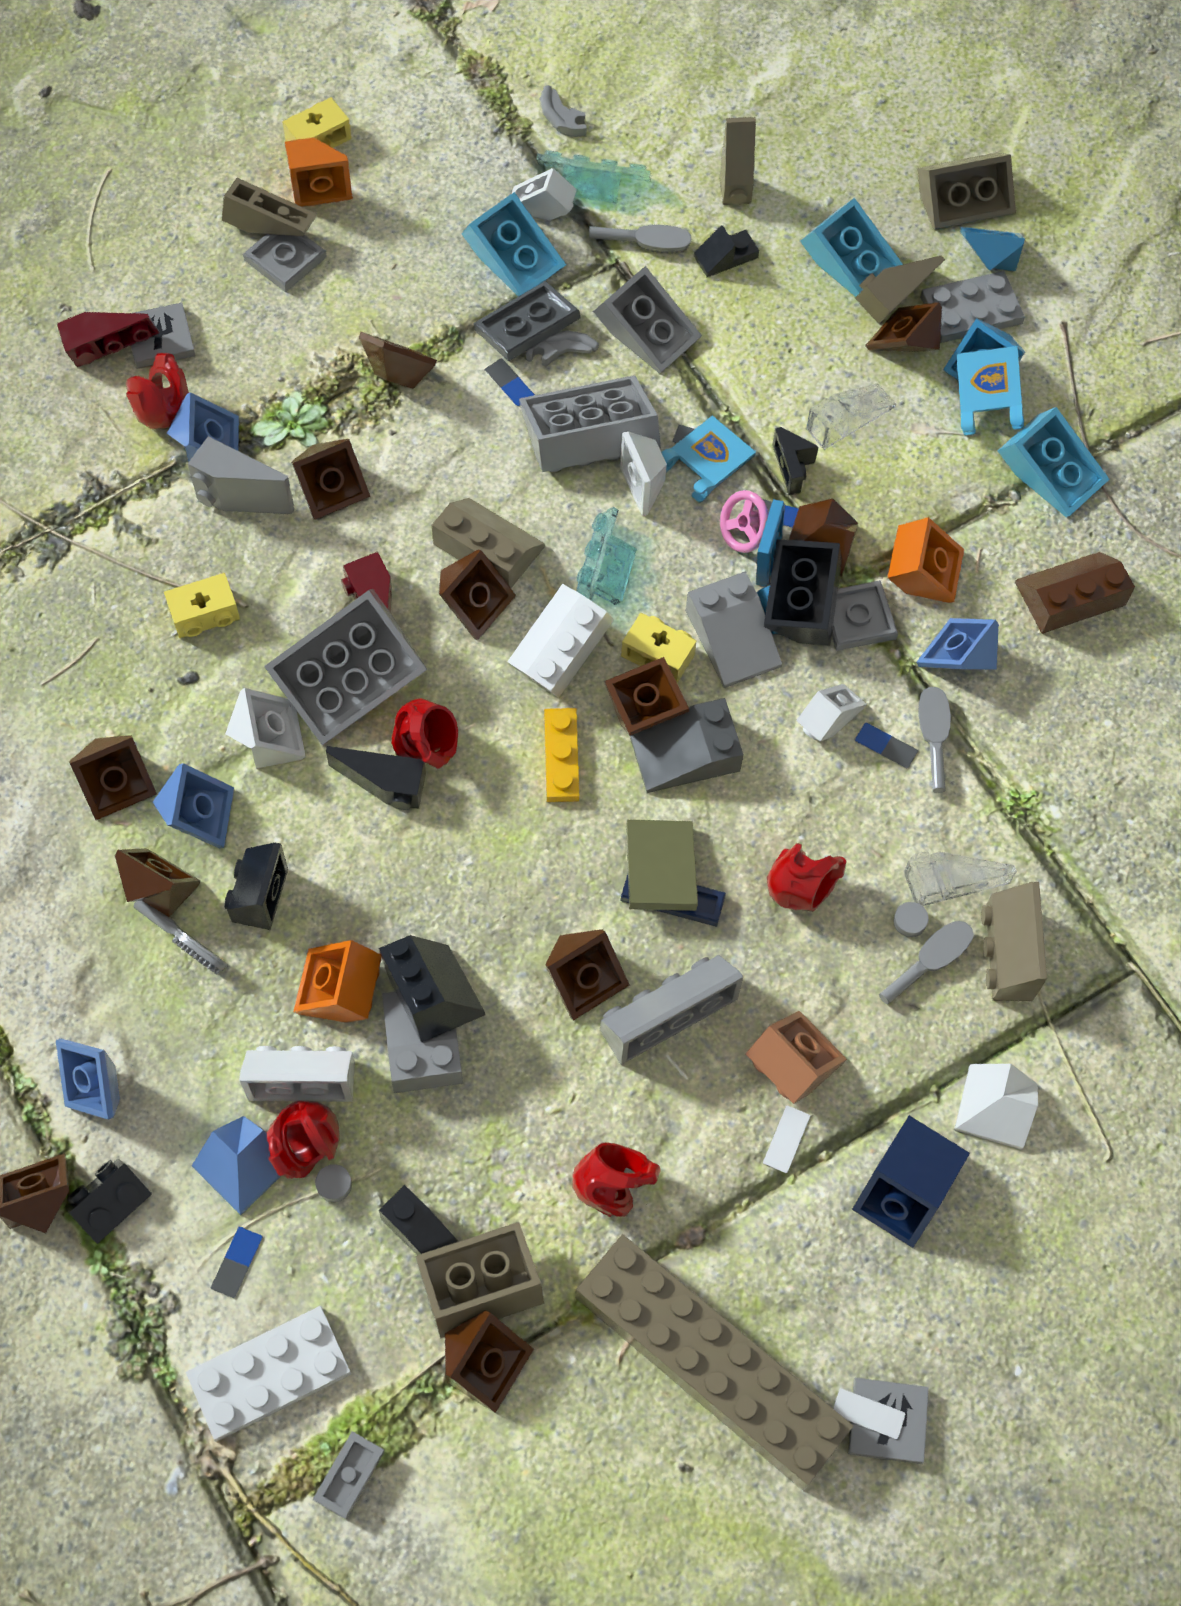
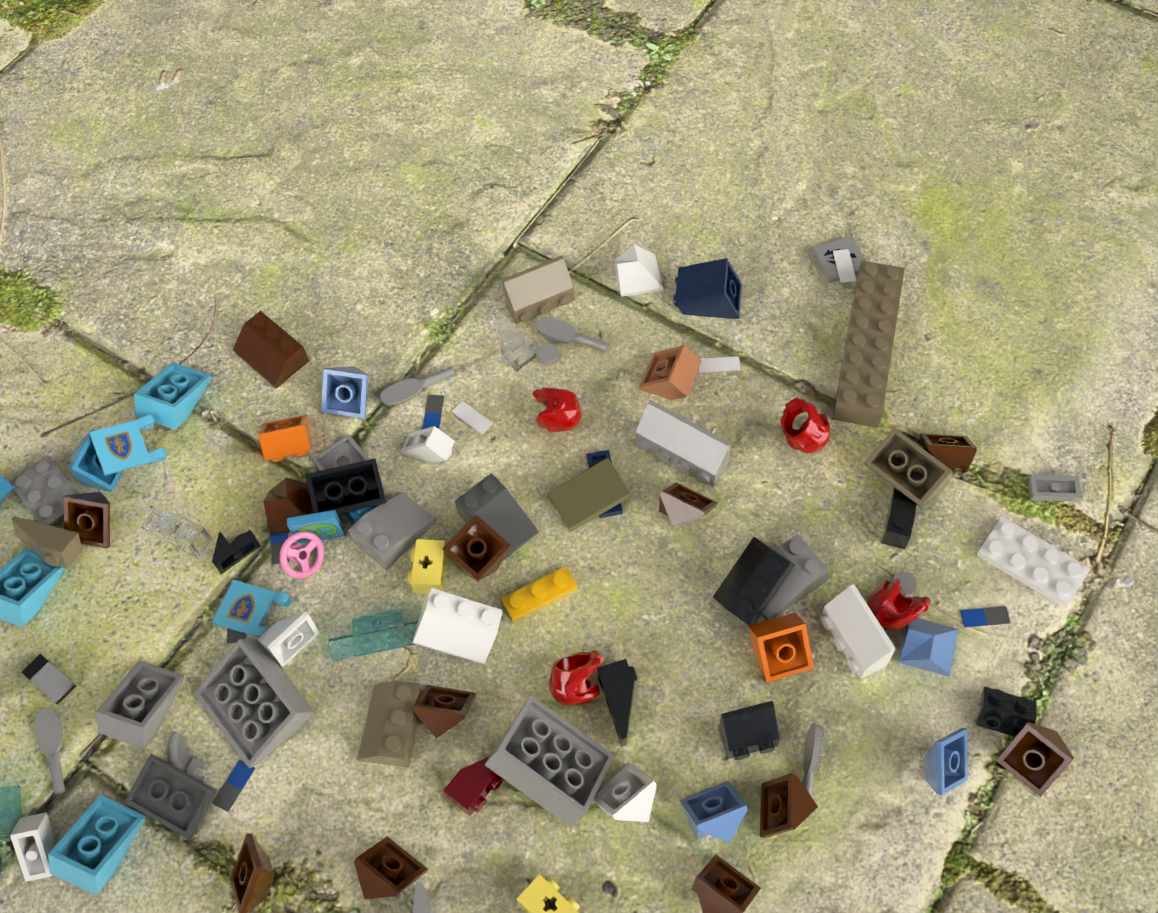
camera: 110 degrees left, 5 degrees down
(856, 788) = (472, 417): none -> white sticker

